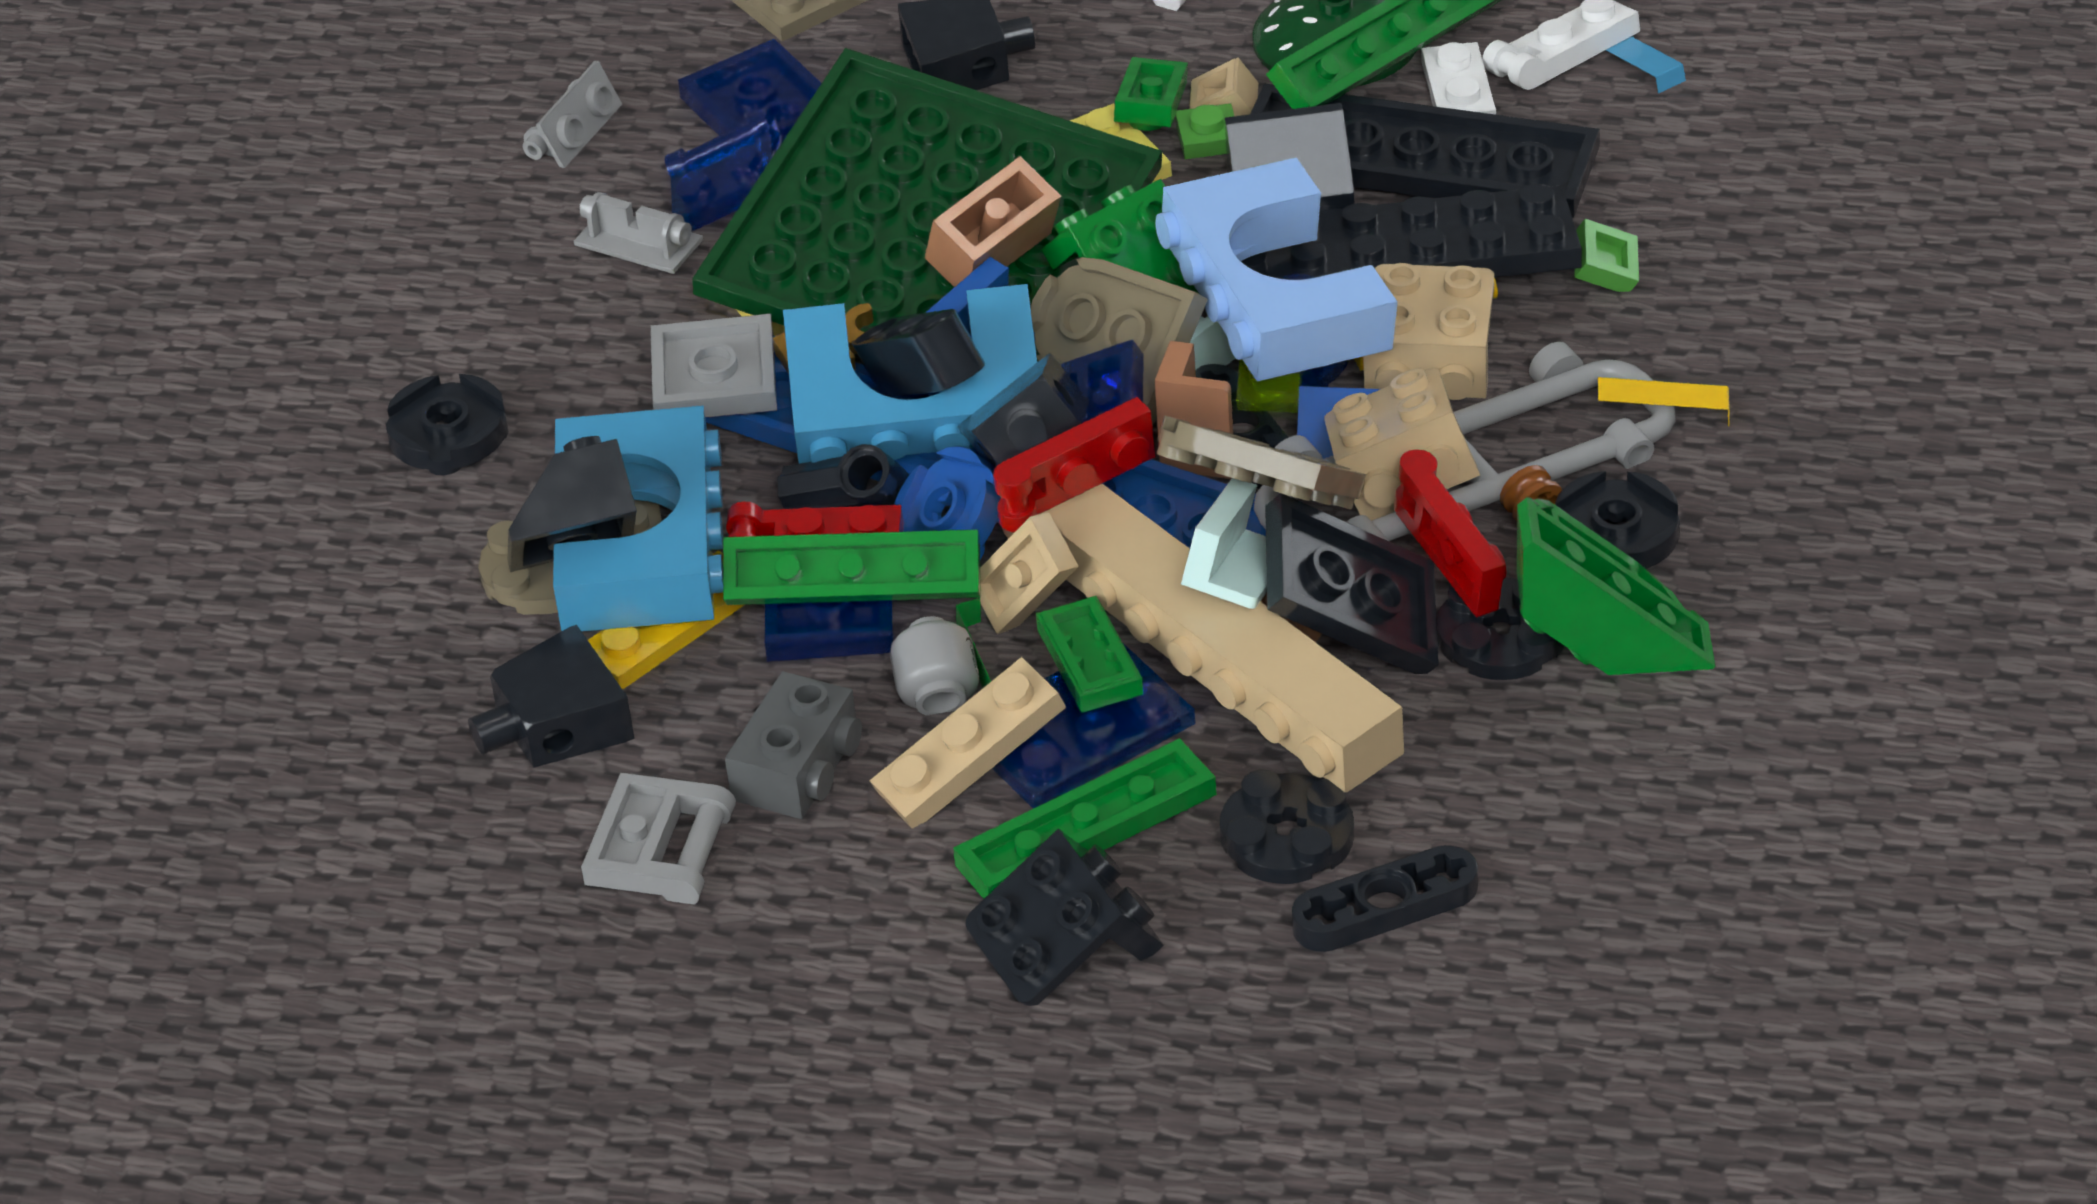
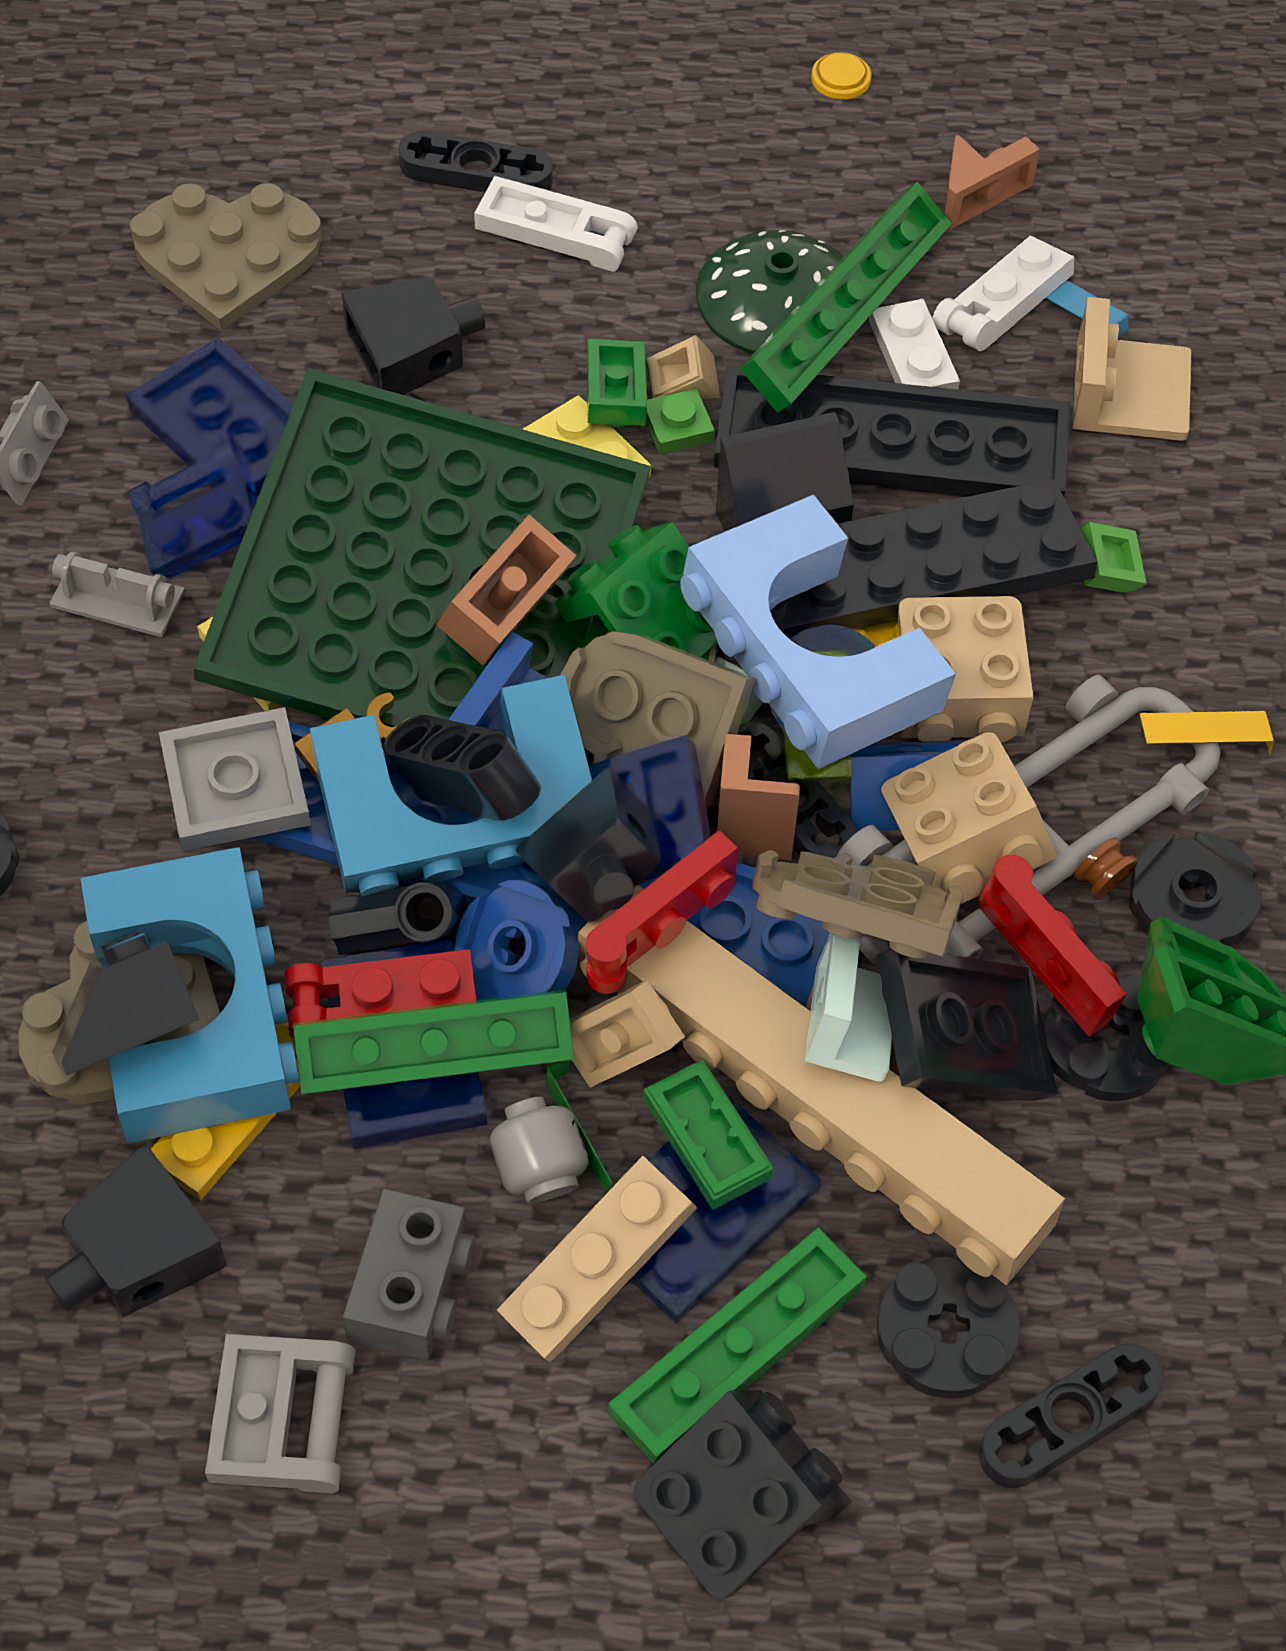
camera: 15 degrees left, 15 degrees up
(1662, 121) = (1128, 383): none -> tan bracket

